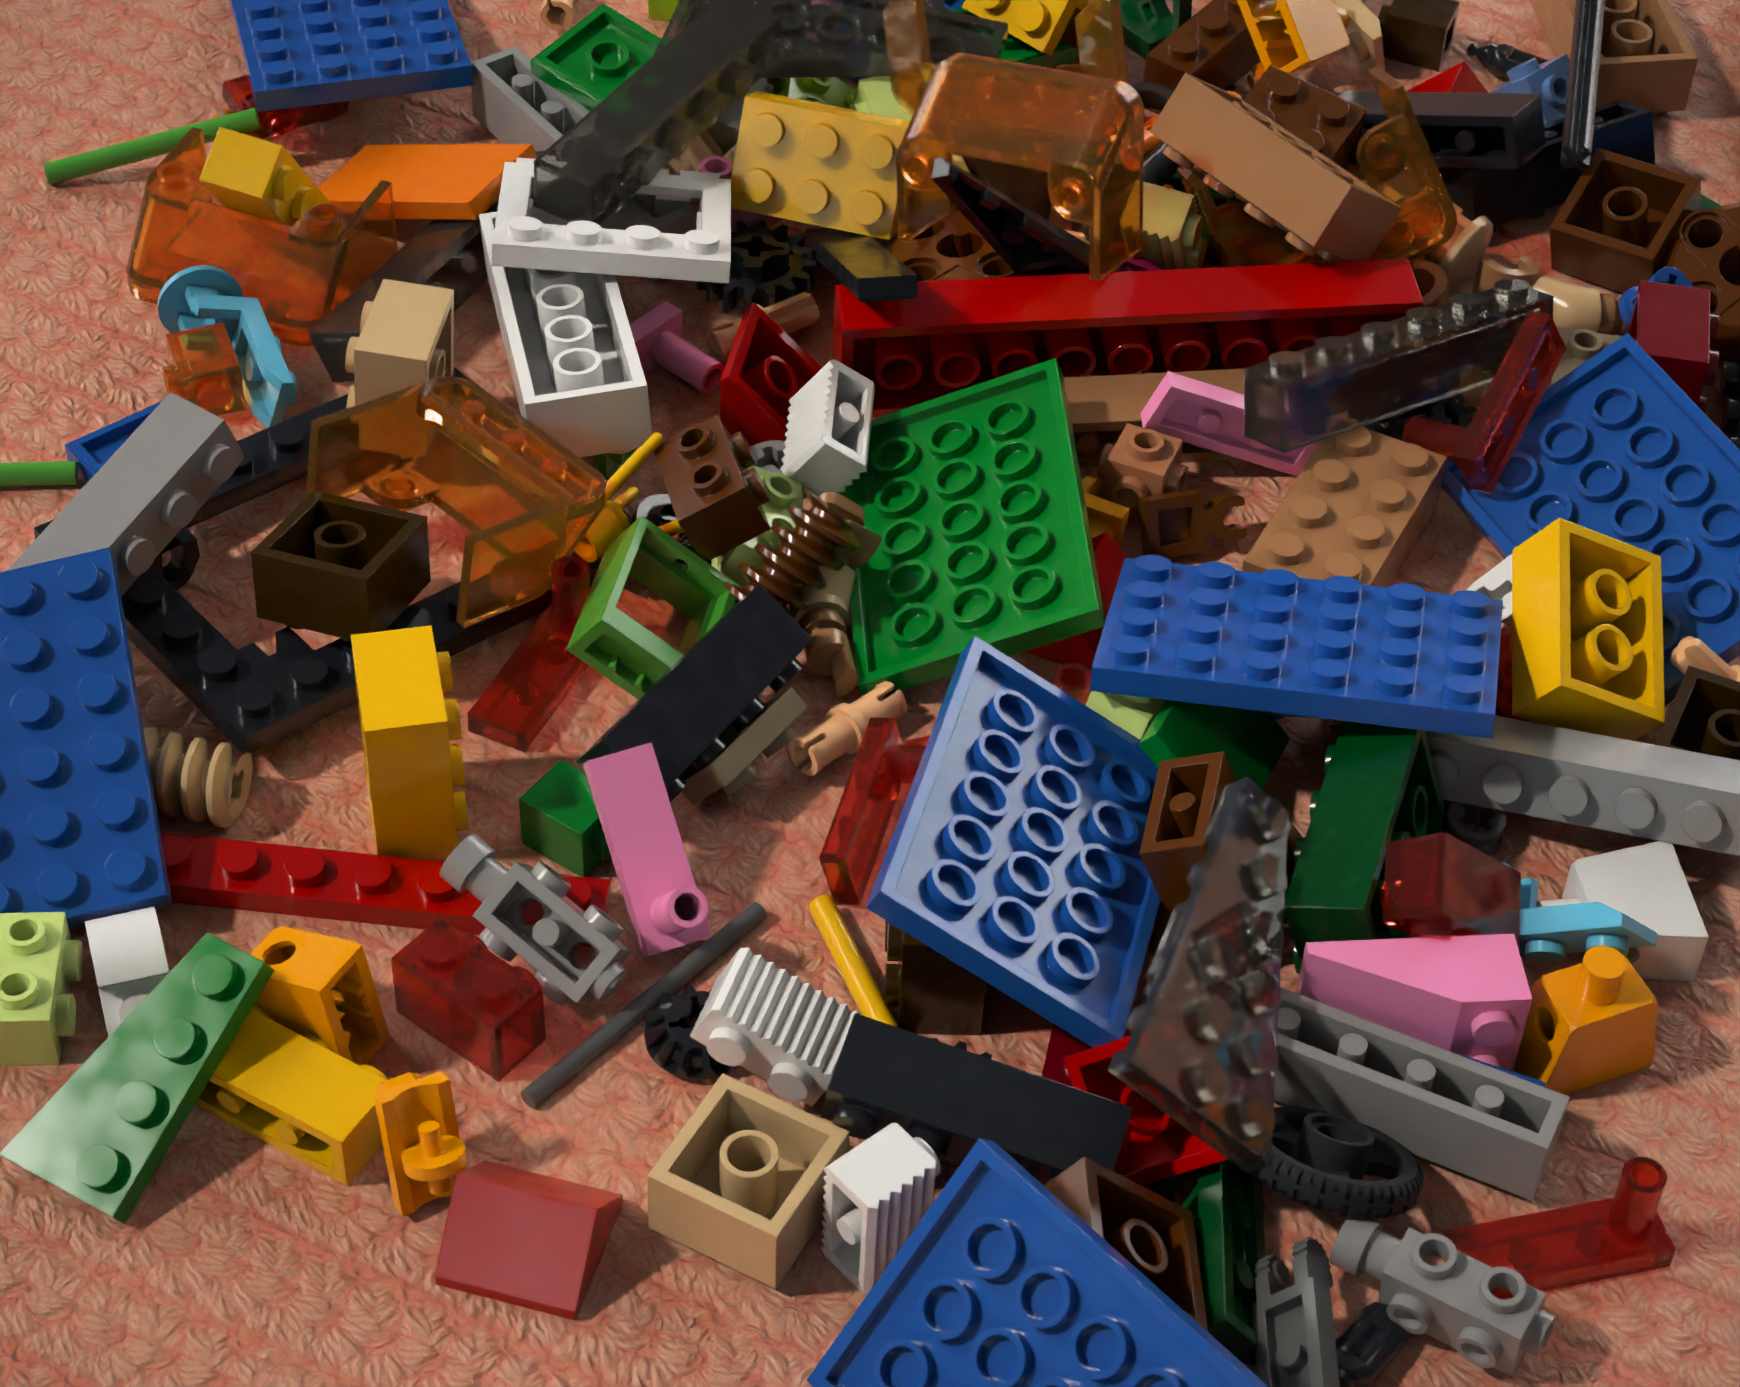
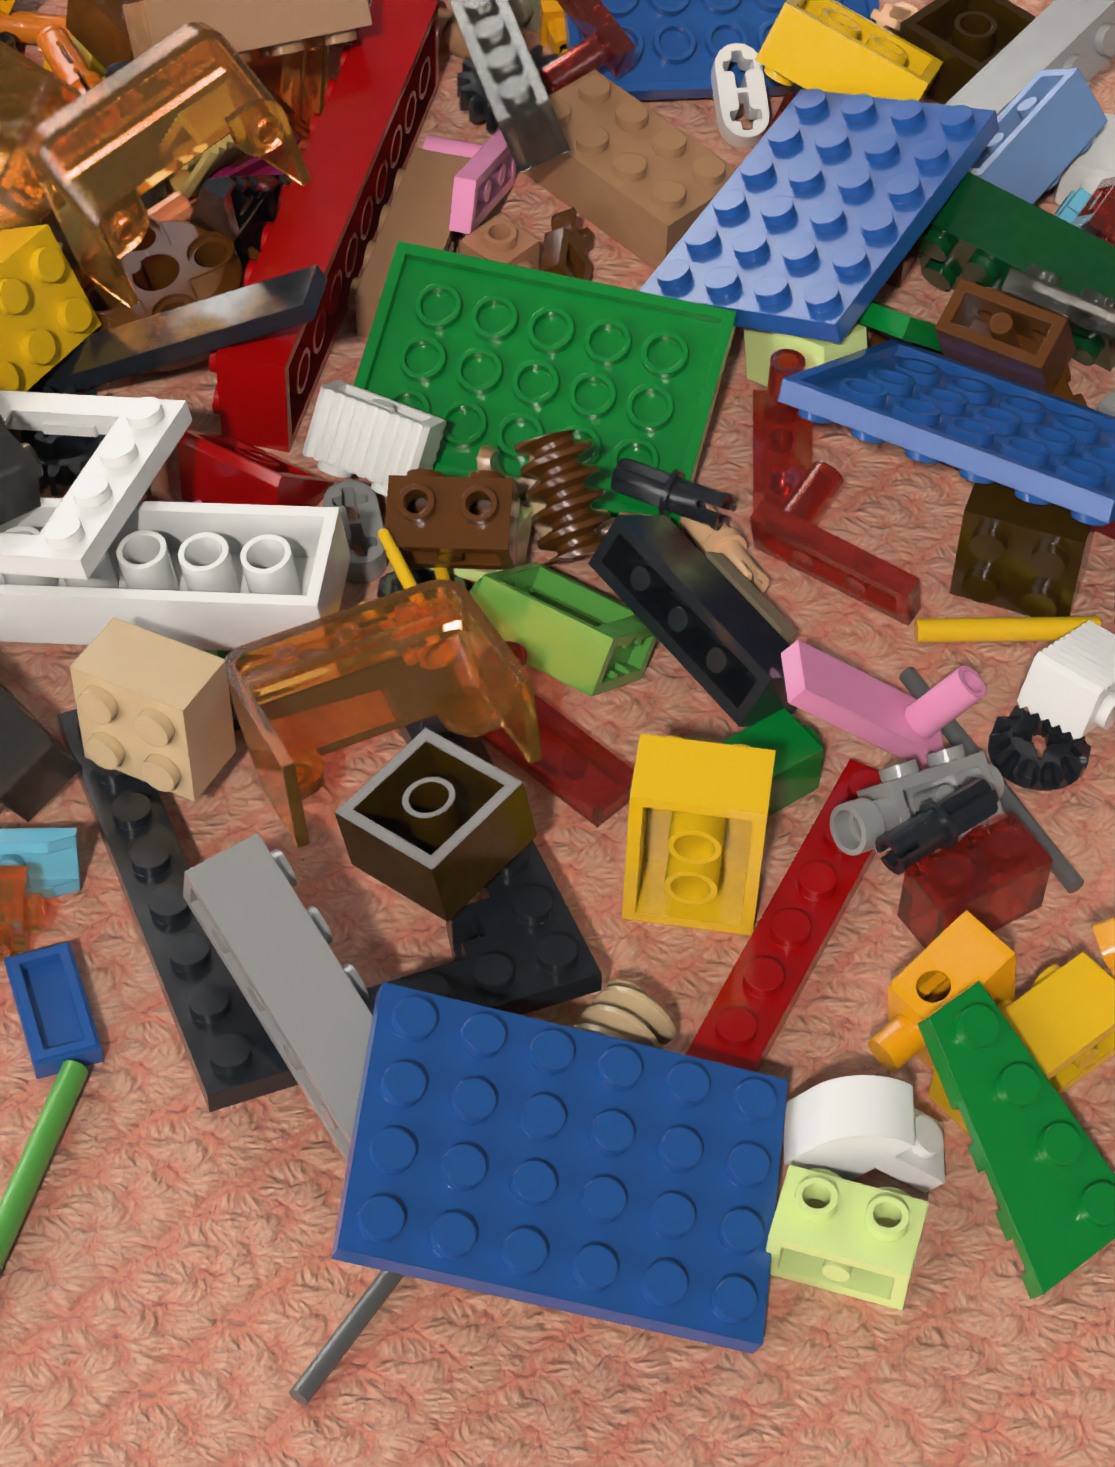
camera: 70 degrees left, 5 degrees up
(488, 920) = (937, 825): none -> black axle
(872, 656) = (669, 492): none -> black axle
(1539, 805) = (1041, 134): none -> medium blue brick

